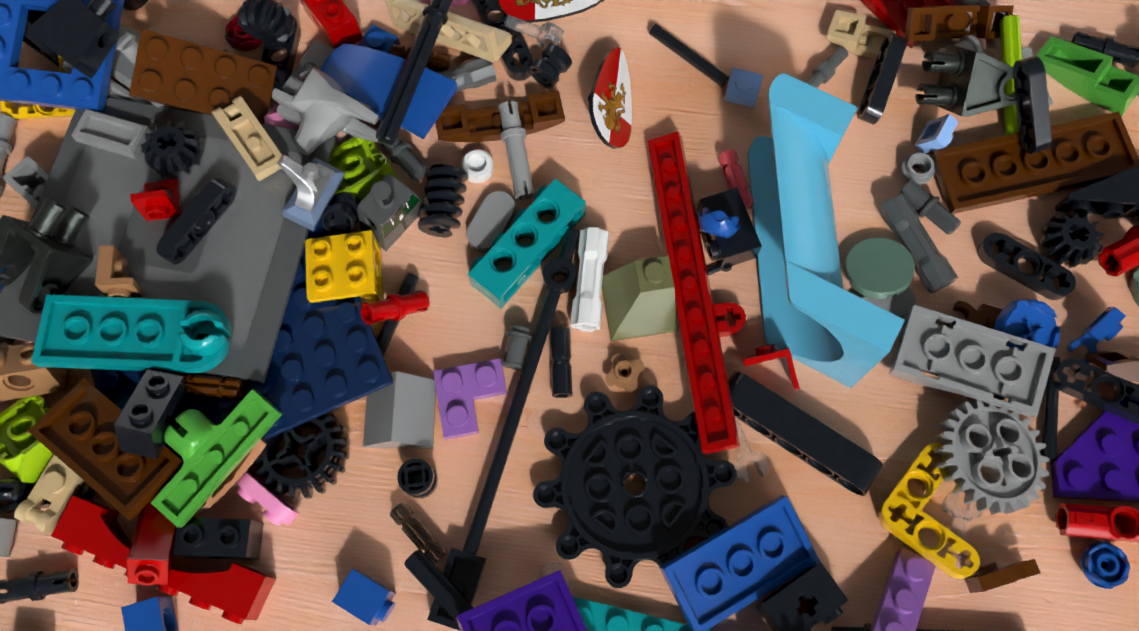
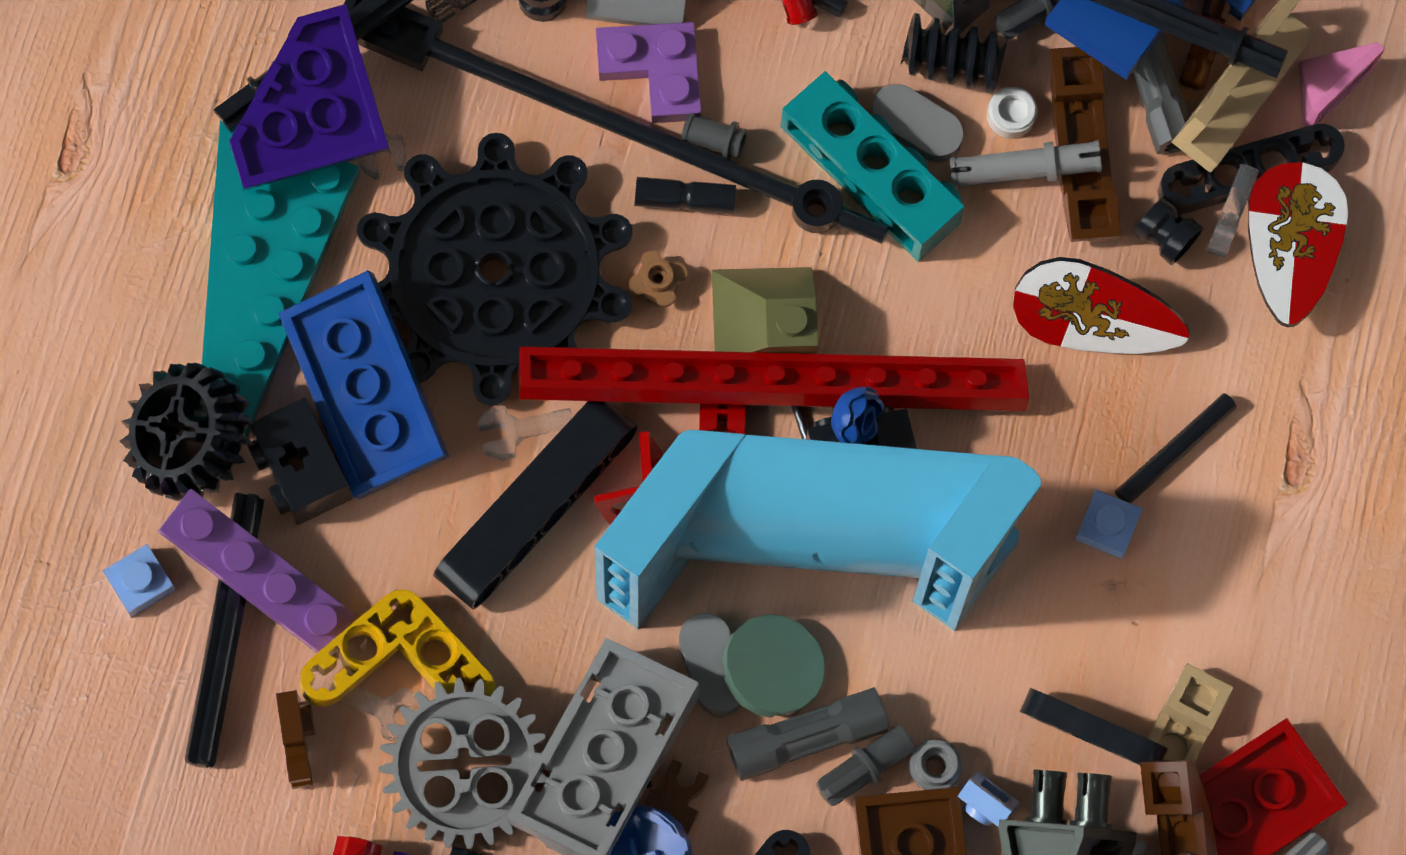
camera: 90 degrees right, 0 degrees up
(587, 303) = (768, 239): white axle -> none
(826, 69) = (1123, 652): dark grey bar -> none

